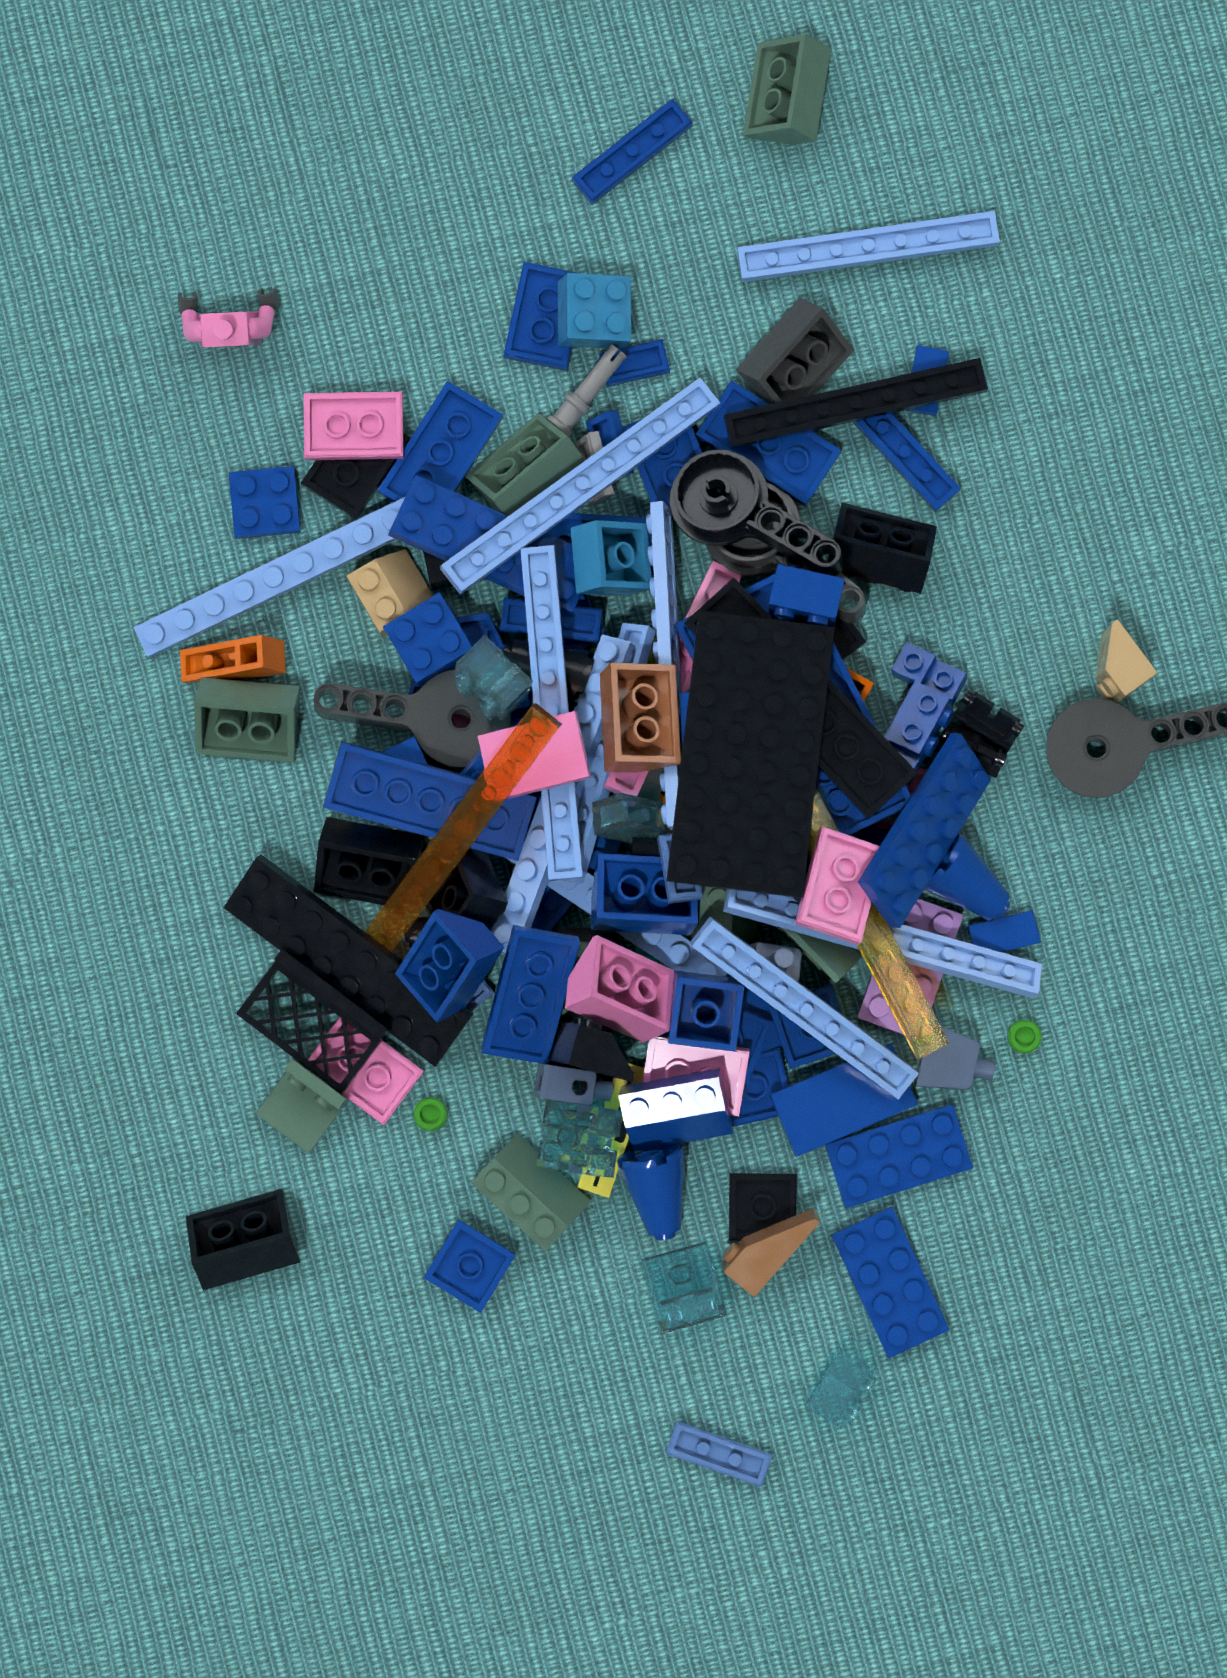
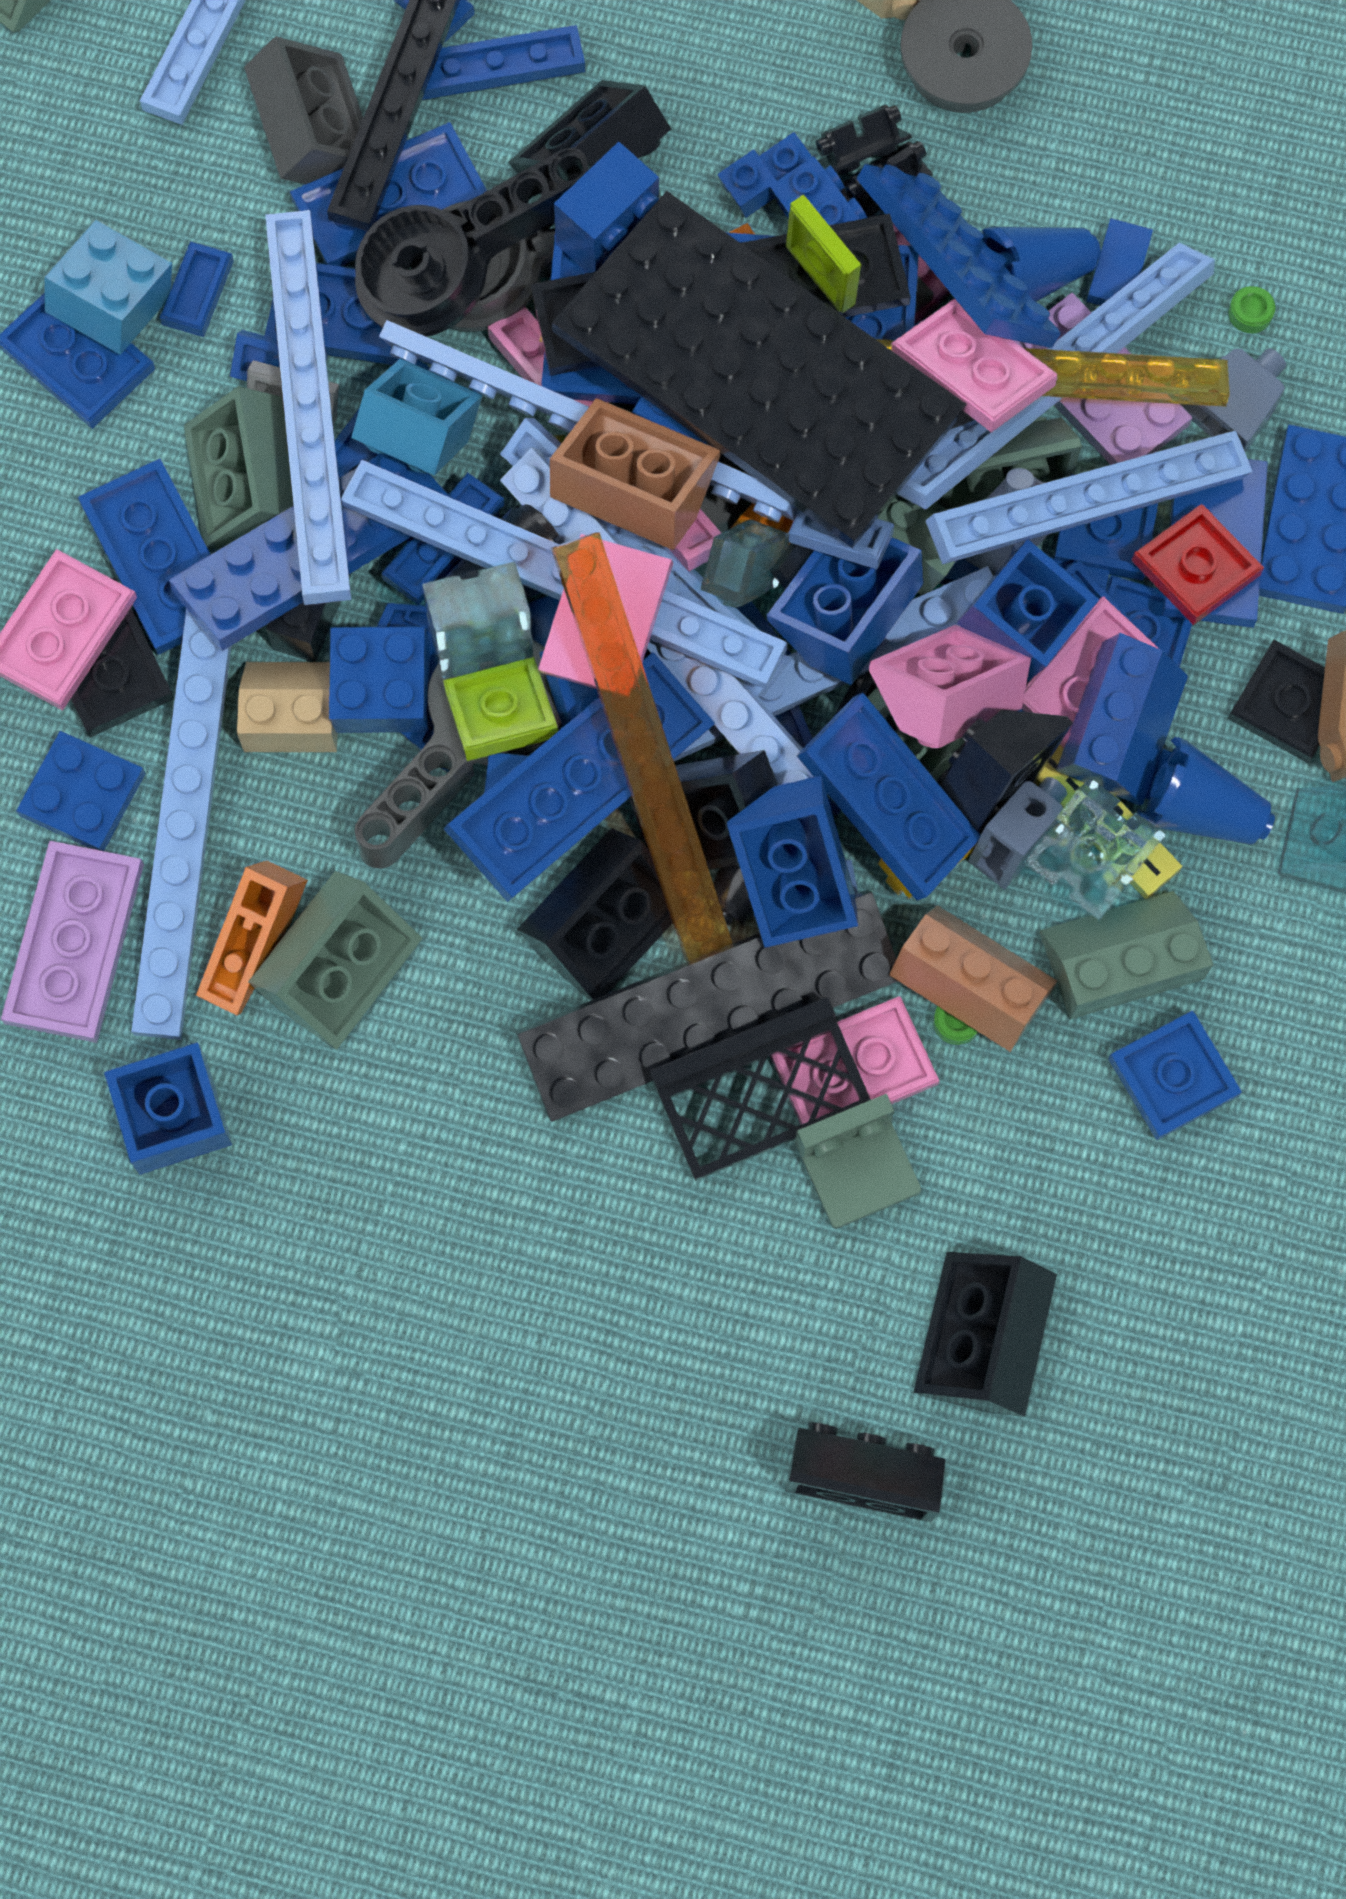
camera: 60 degrees left, 10 degrees down
(96, 679) = (168, 1108): none -> blue brick
(115, 1215) = (866, 1473): none -> black slope
(168, 557) = (72, 941): none -> lavender plate
(447, 726) = (500, 708): none -> lime tile
(460, 1109) = (972, 977): none -> nougat slope
(577, 403) = (202, 368): light grey pin -> none
(812, 1098) = (1197, 564): none -> red tile
(849, 749) = (822, 254): none -> lime tile

